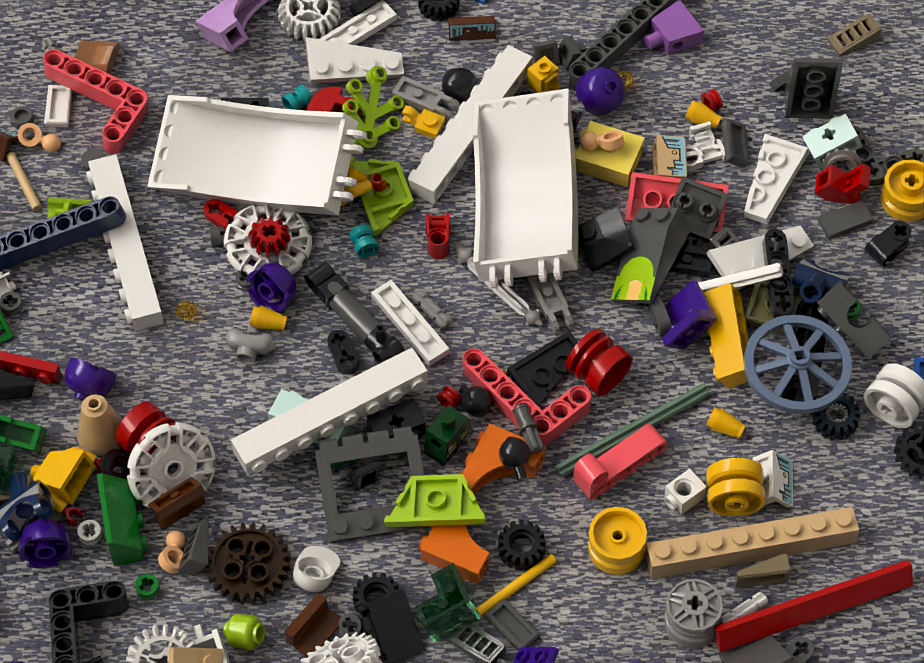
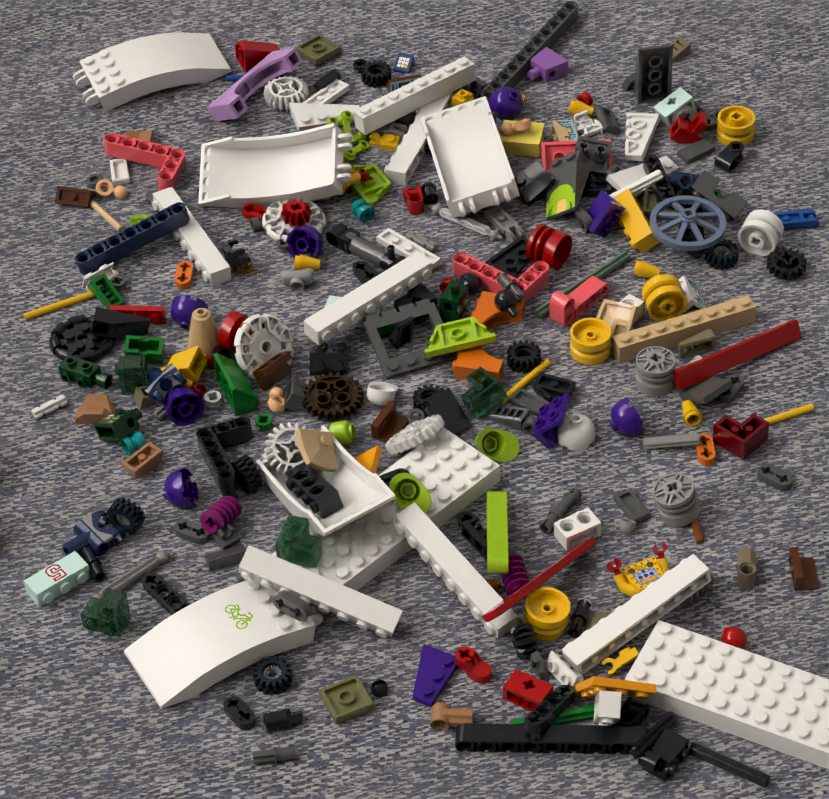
camera: 10 degrees left, 15 degrees down
(106, 307) = (180, 275): none -> orange beam
(174, 290) = (235, 257): none -> black hinge
(260, 495) = (329, 358): none -> black bracket
(461, 227) = (429, 193): none -> black bush
(476, 60) = (414, 95): none -> white brick
(549, 612) = (552, 386): none -> black wing
(661, 507) = (617, 315): none -> tan plate

